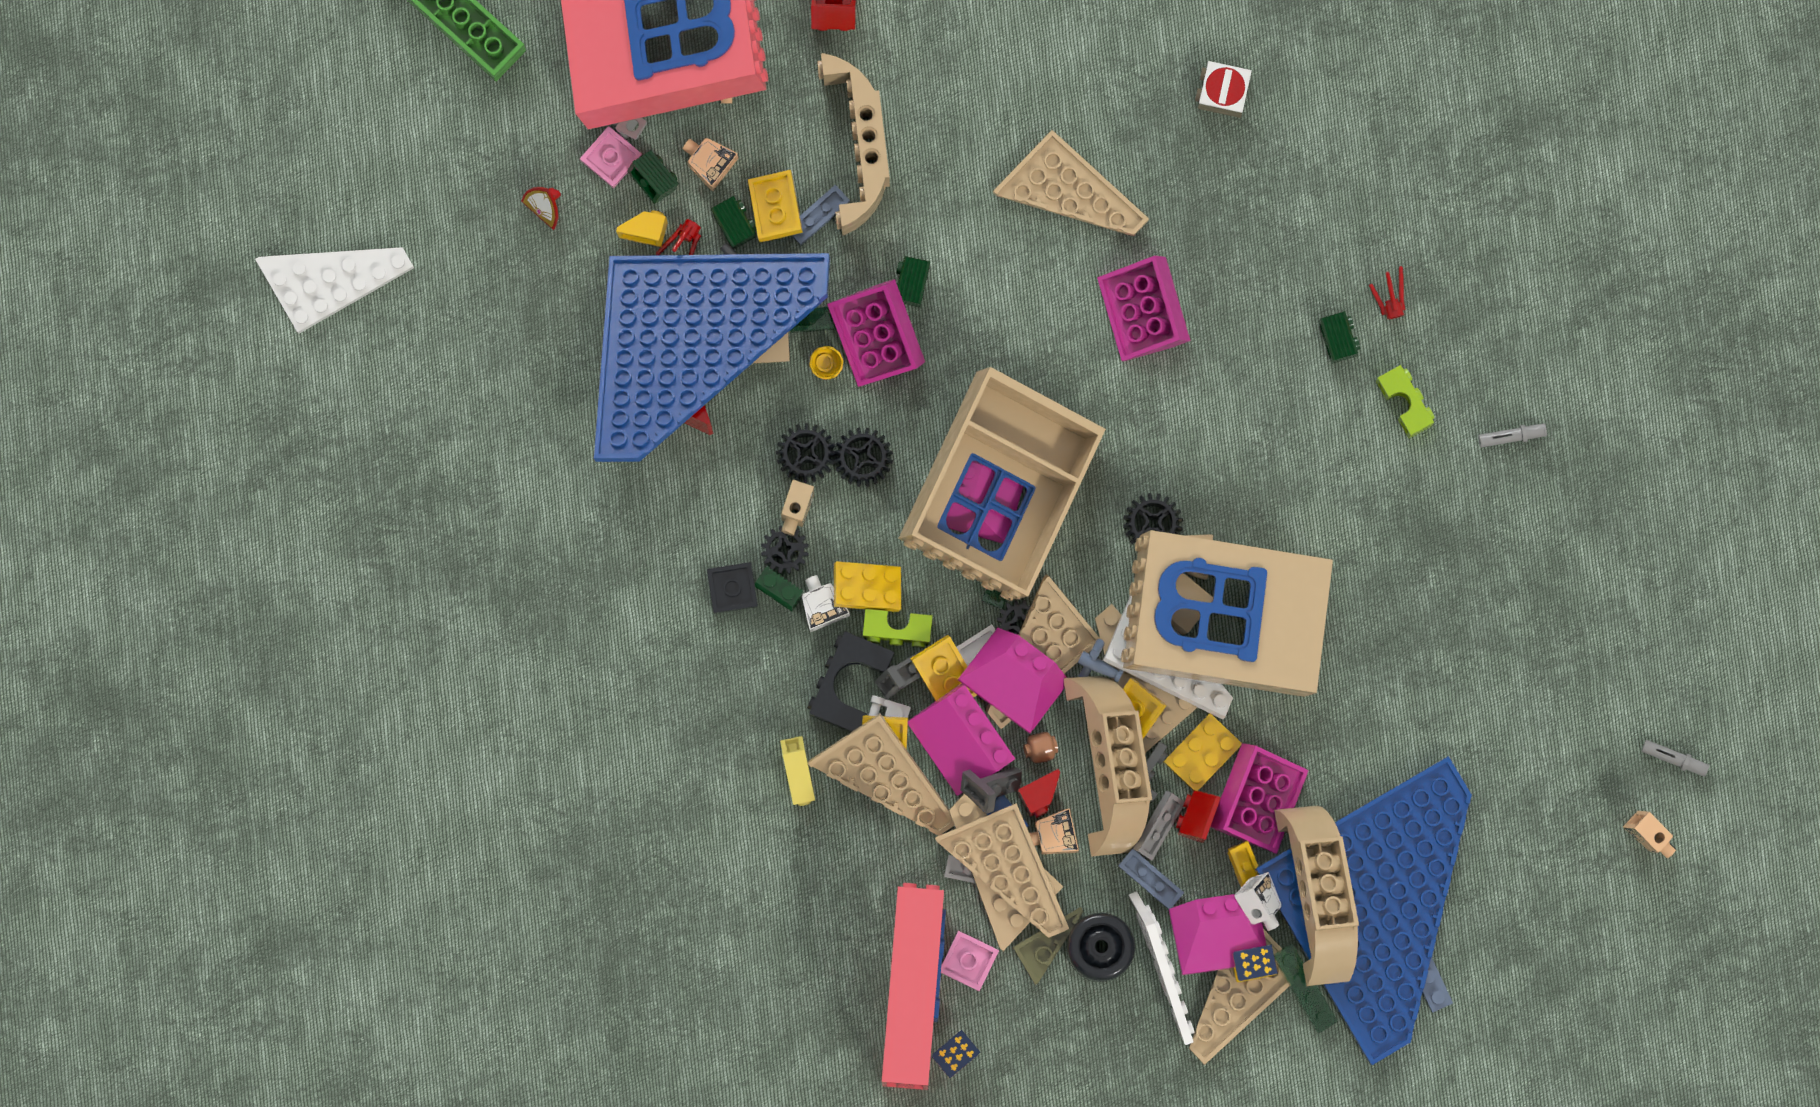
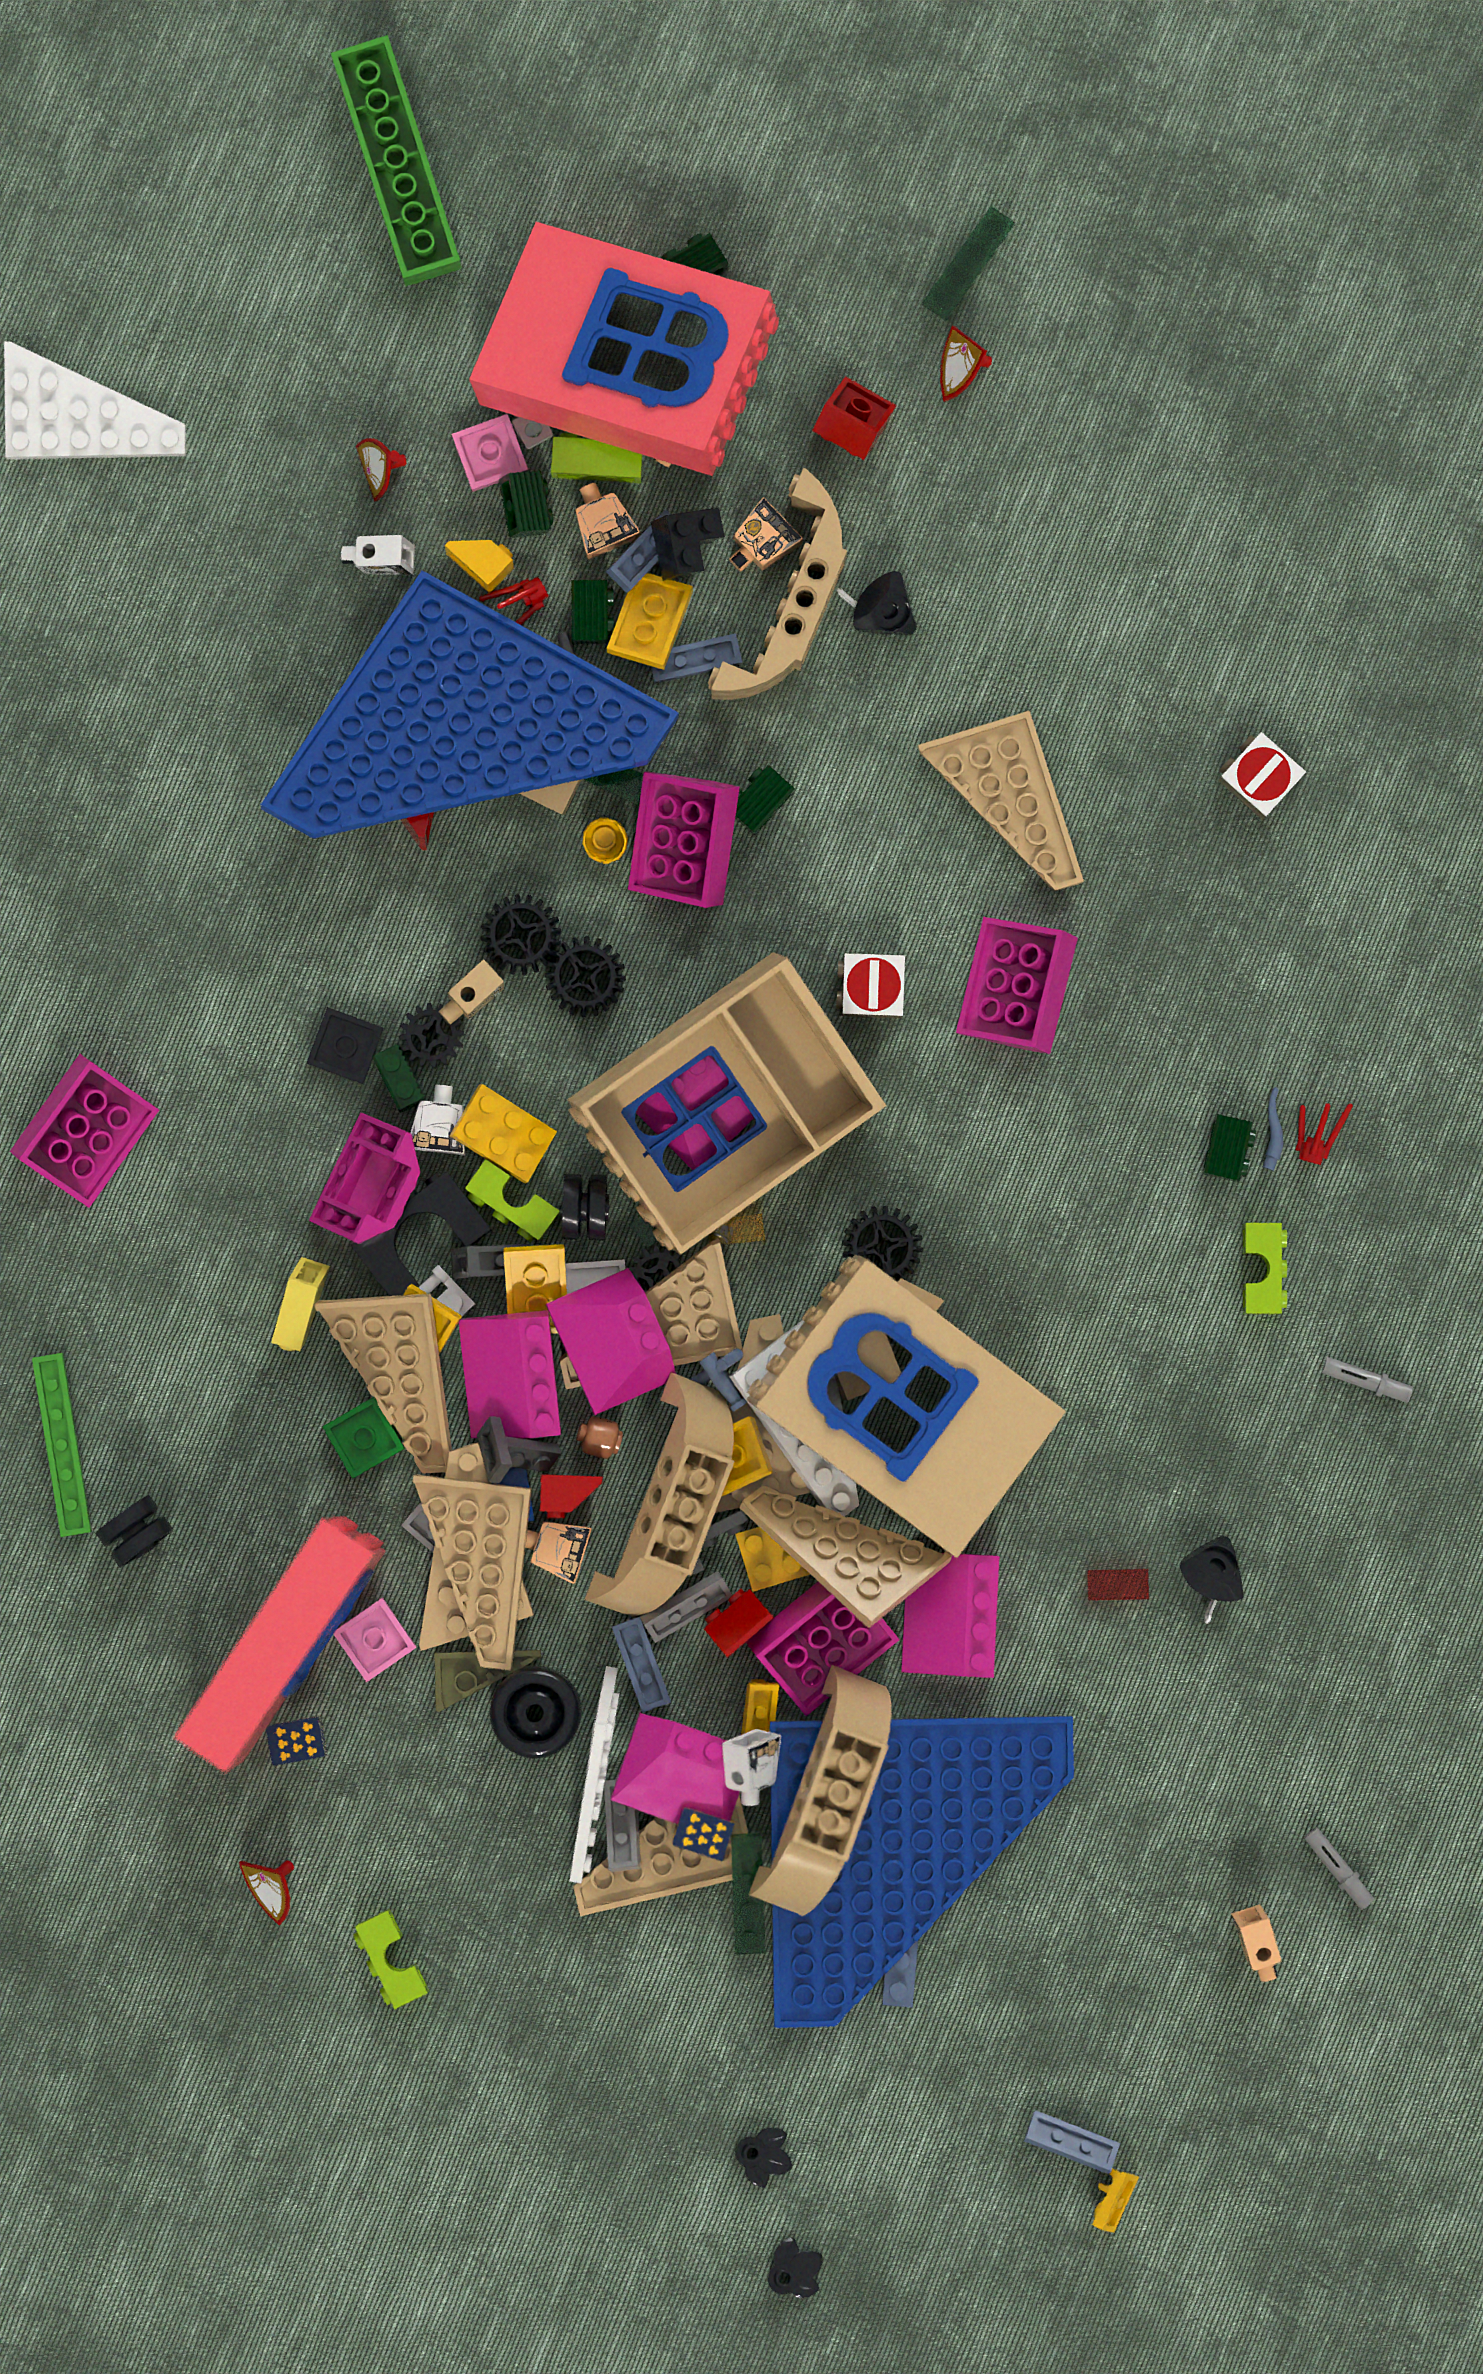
camera: 25 degrees right, 5 degrees up
(586, 259) = (381, 555): none -> white torso
(593, 736) = (84, 1130): none -> dark pink slope
(681, 125) = (593, 460): none -> lime brick
(693, 949) = (61, 1444): none -> bright green plate
(747, 163) = (636, 559): none -> sand blue plate
(766, 143) = (679, 541): none -> black brick
(775, 977) = (136, 1534): none -> black wheel
(797, 664) = (368, 1181): none -> dark pink slope
(819, 114) = (764, 538): none -> torso
(887, 834) = (363, 1437): none -> green plate
(921, 115) = (883, 607): none -> black hat
(949, 602) = (585, 1207): none -> black wheel
(1051, 360) = (871, 985): none -> piece
(1056, 563) = (740, 1230): none -> clear yellow leg
(1201, 994) = (622, 1833): none -> light grey plate
(1253, 733) = (855, 1563): none -> tan wing
(1332, 734) = (953, 1620): none -> dark pink slope
(1369, 324) = (1276, 1133): none -> sand blue animal
(1428, 655) = (1118, 1584): none -> clear red tile
(1486, 613) = (1214, 1573): none -> black hat
(1605, 1031) = (1071, 2142): none -> sand blue plate
(1656, 1059) = (1113, 2205): none -> yellow plate

